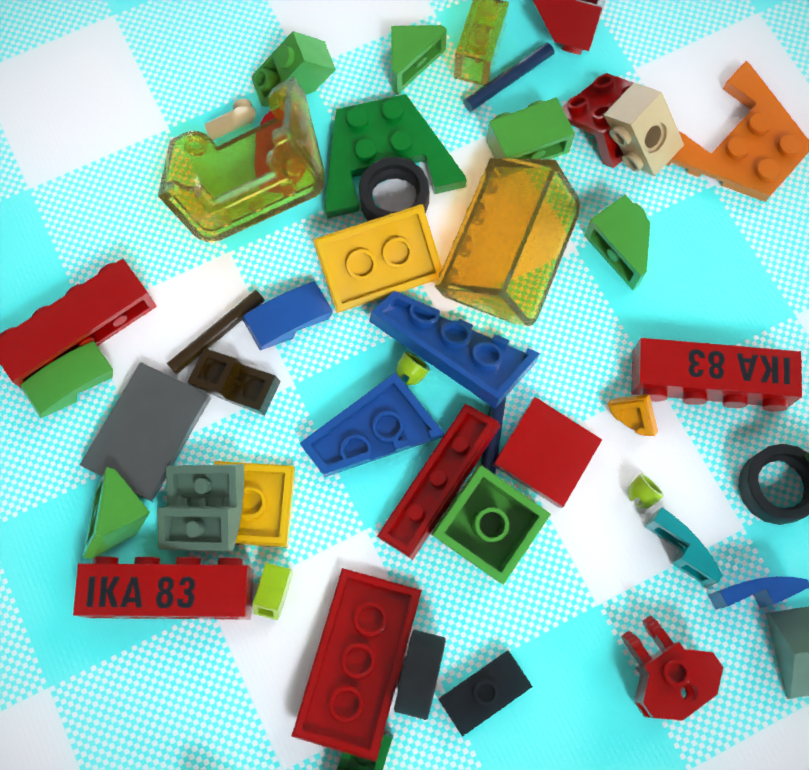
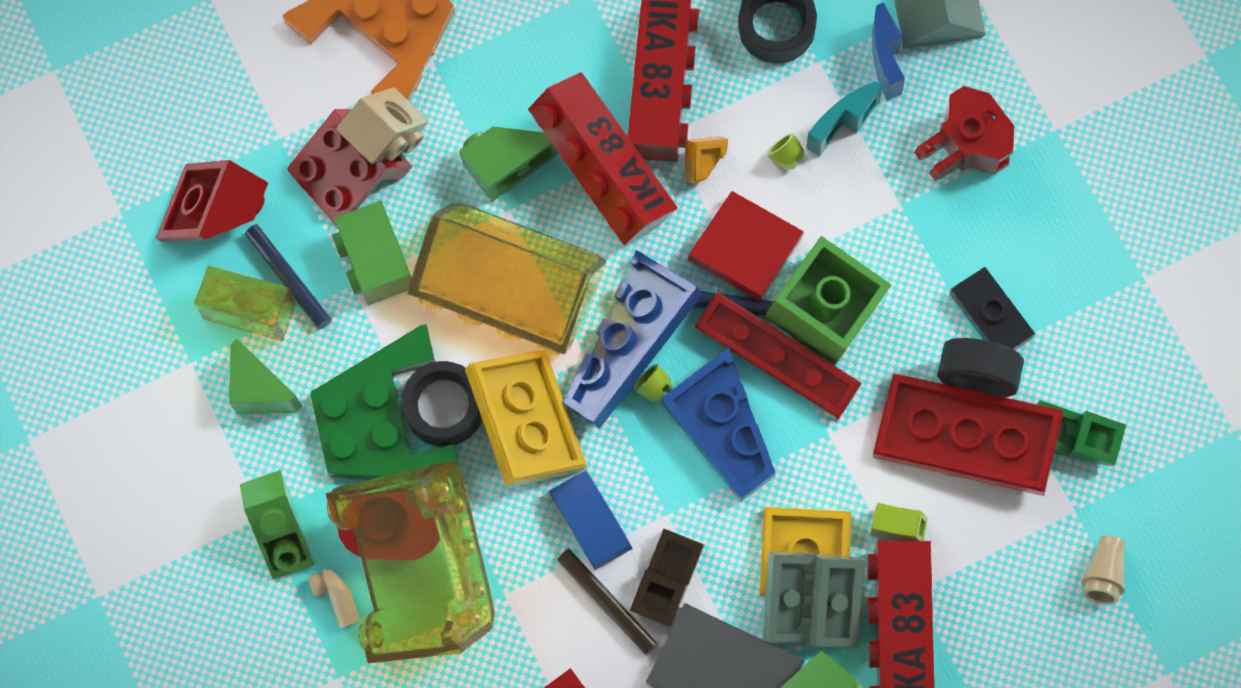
camera: 85 degrees left, 0 degrees up
(624, 314) = (602, 158): none -> red brick

